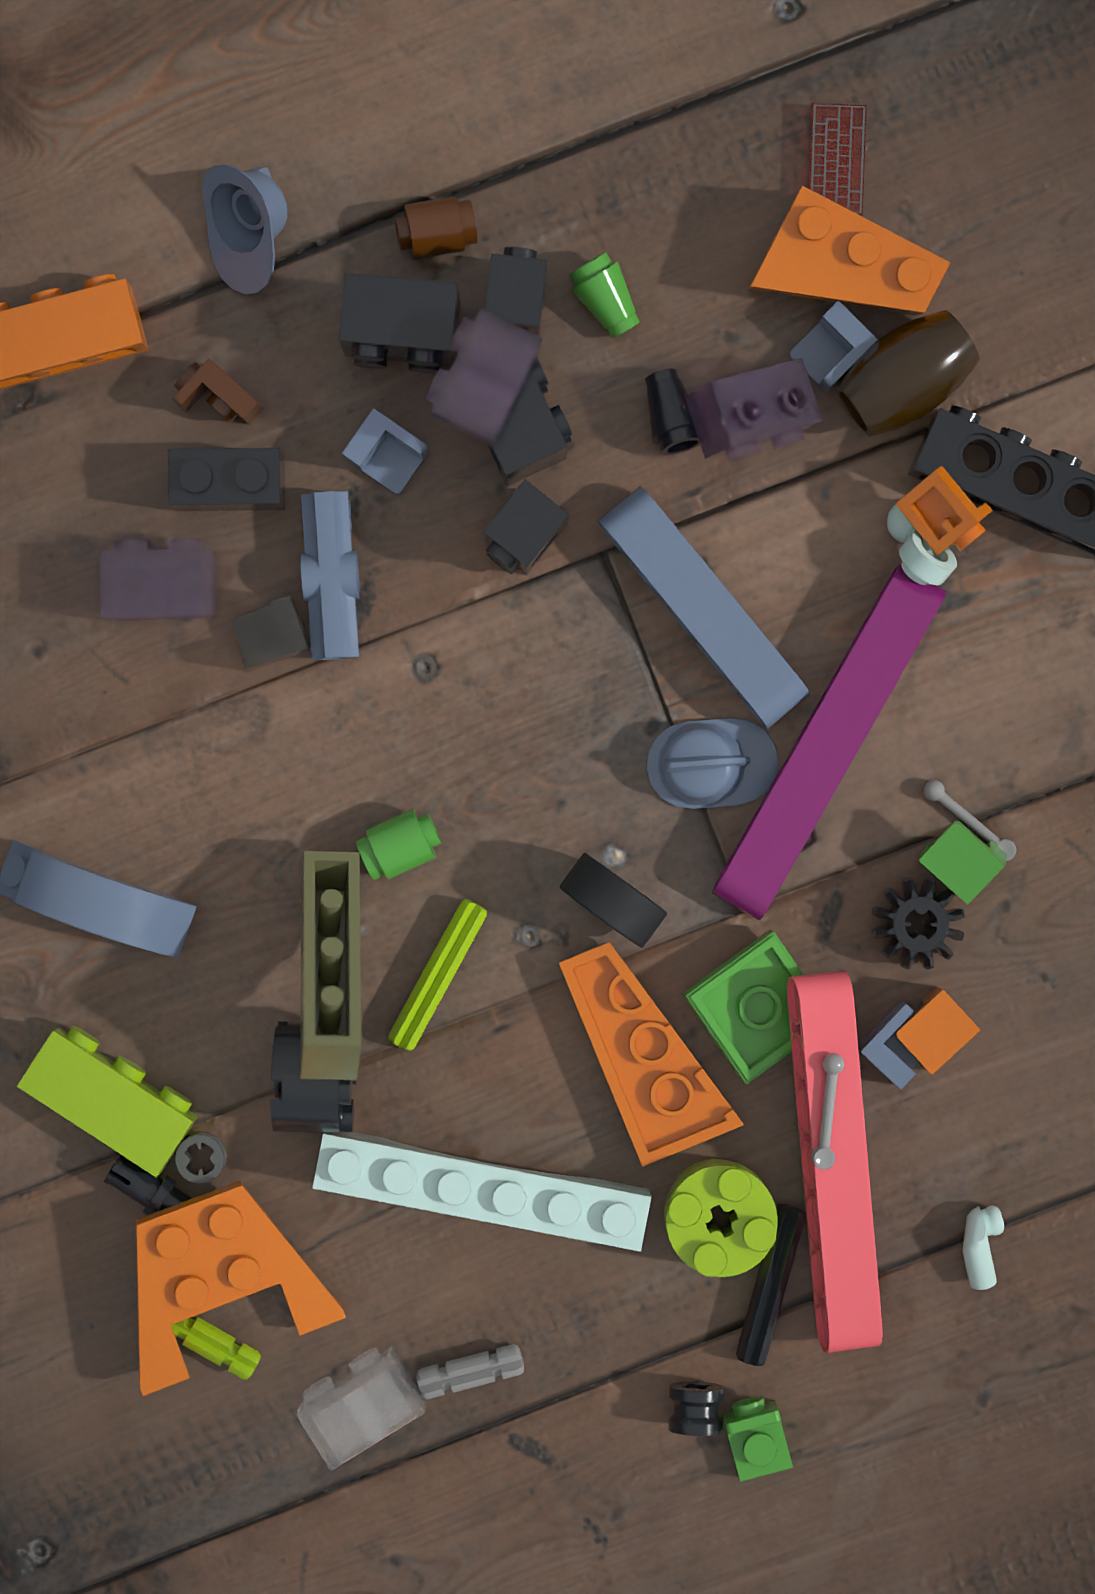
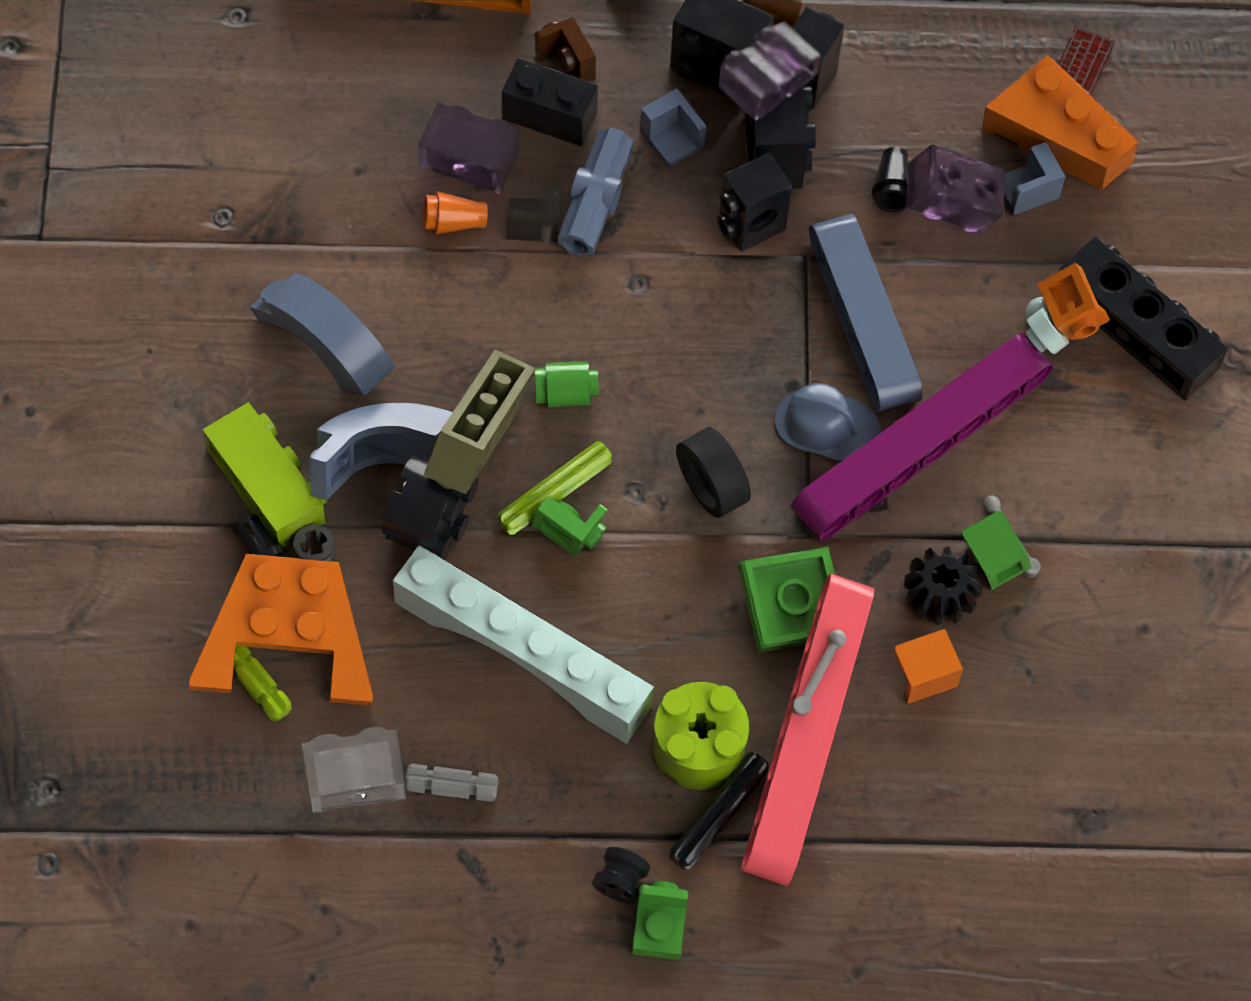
camera: 20 degrees right, 25 degrees down
(175, 673) = (452, 213): none -> orange cone
(210, 1005) = (370, 438): none -> sand blue arch
(466, 1024) = (564, 526): none -> bright green bracket
(605, 294) = (876, 87): bright green cone -> none
(650, 1070) = (689, 612): orange wing -> none
(886, 1050) = (882, 669): sand blue panel -> none
(908, 373) = (1079, 208): dark brown piece -> none
(976, 1245) = (897, 842): light aqua arm -> none

